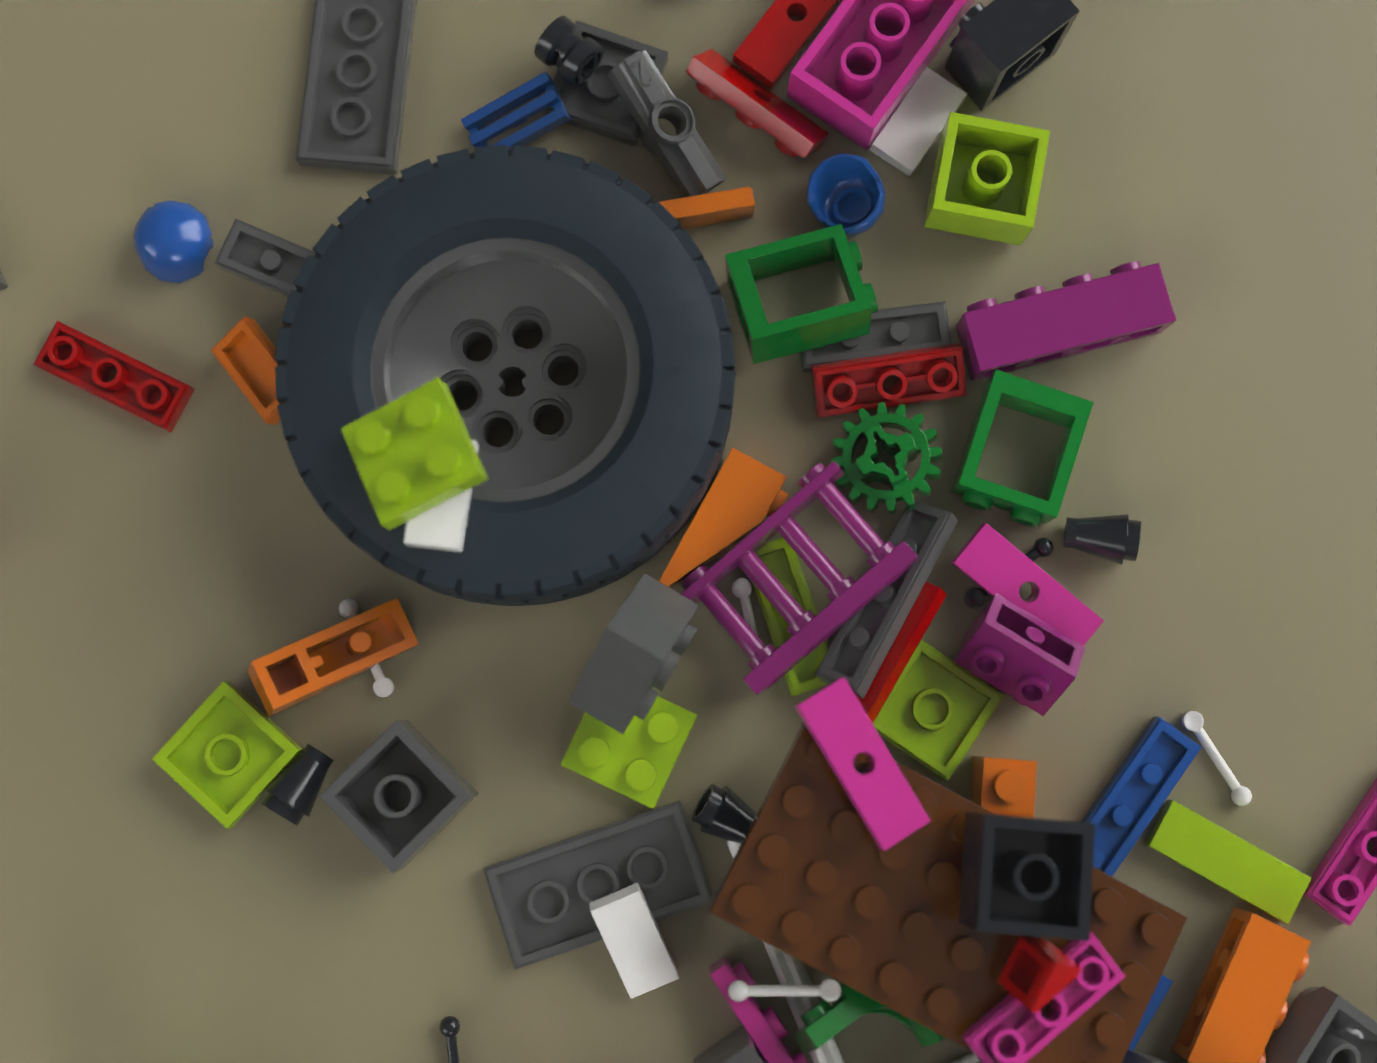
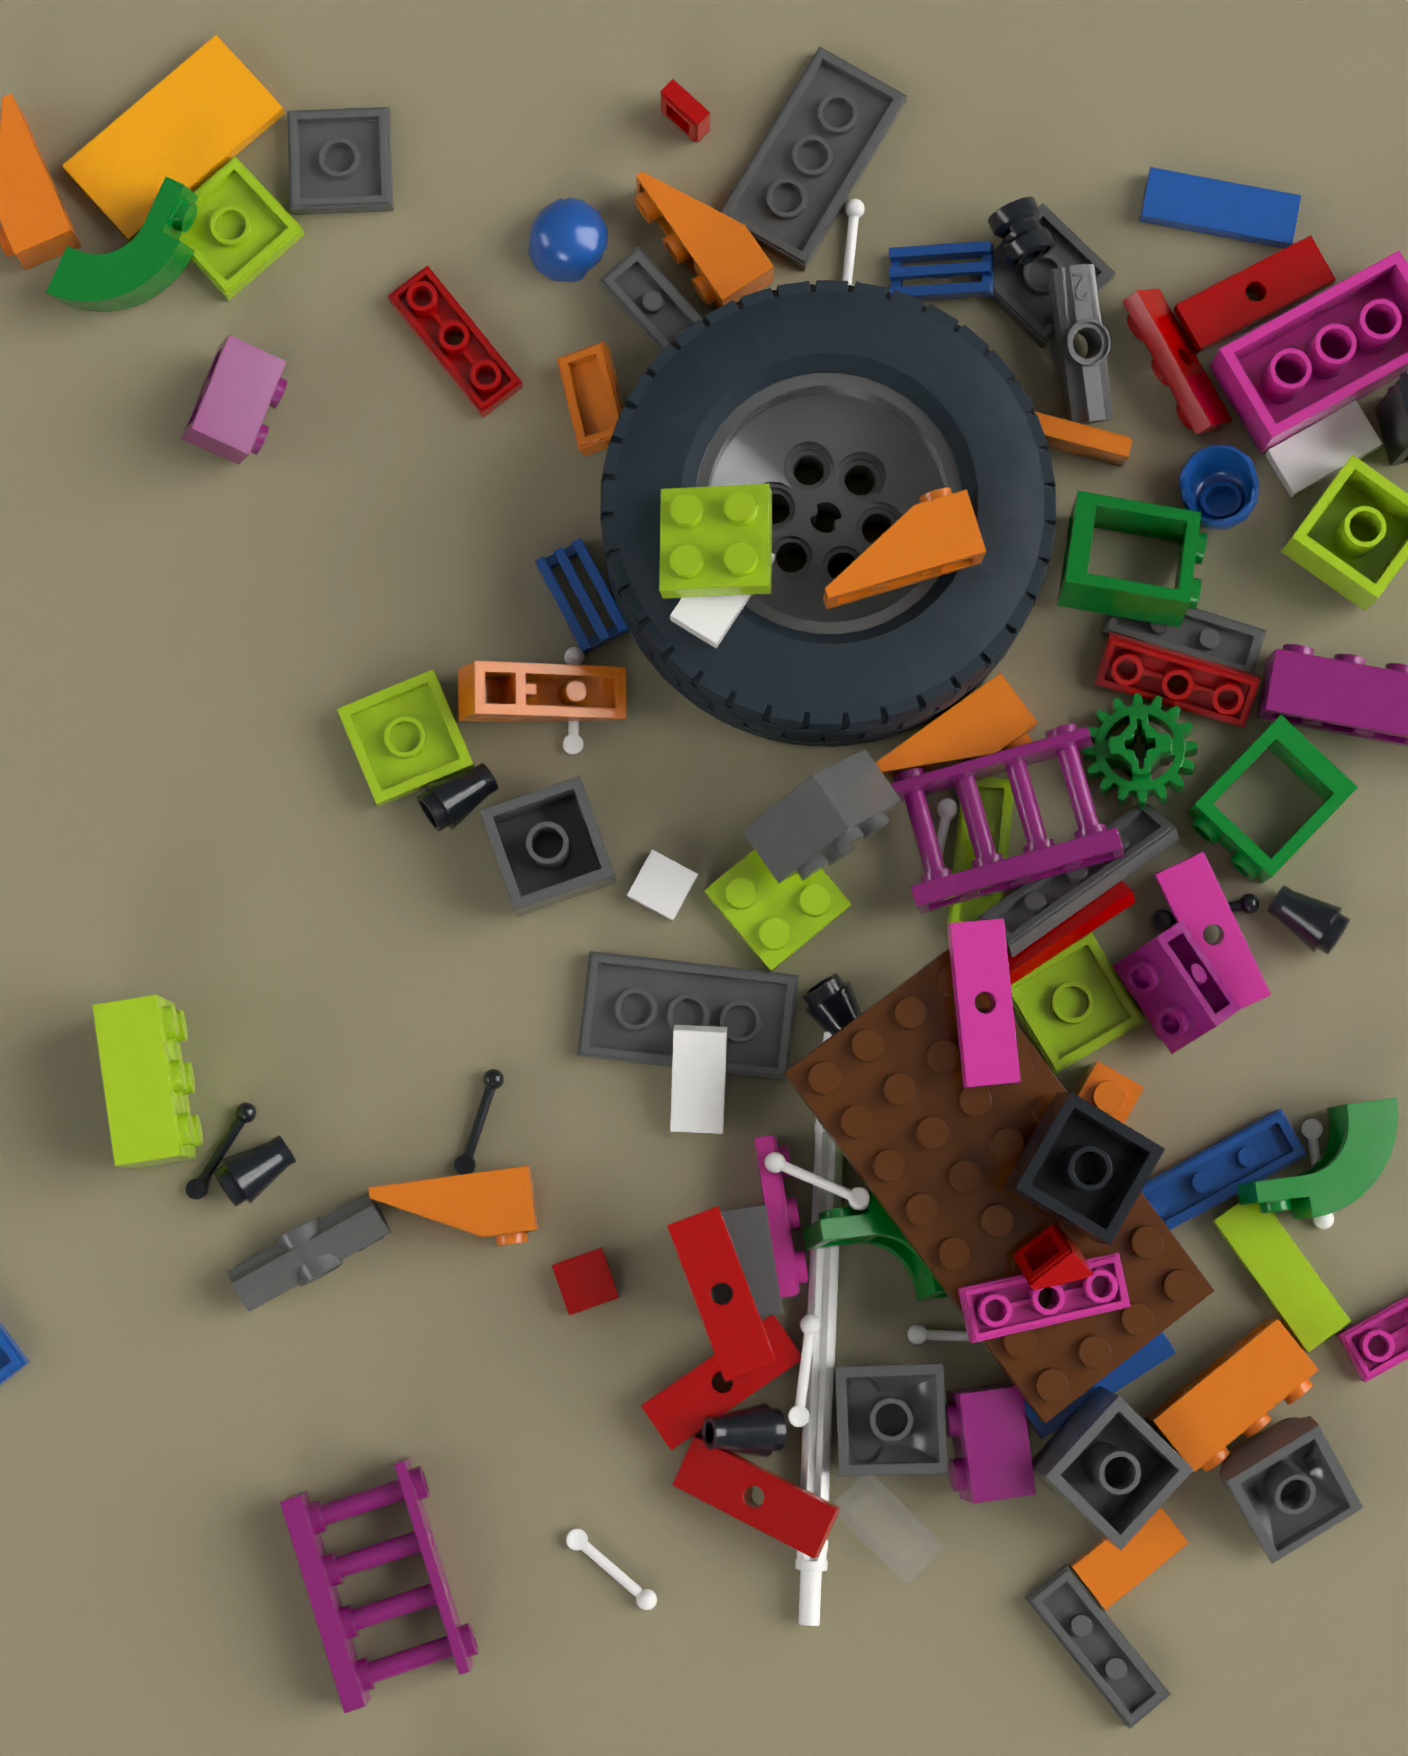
camera: 25 degrees right, 0 degrees up
(224, 81) = (685, 111): none -> red tile
(293, 184) = (711, 244): none -> orange slope
(296, 525) = (562, 558): none -> blue tile
(416, 101) = (854, 209): none -> white hinge
(521, 777) = (662, 885): none -> white tile
(607, 367) = (921, 545): none -> orange slope
(1242, 750) = (1352, 1161): none -> green arch

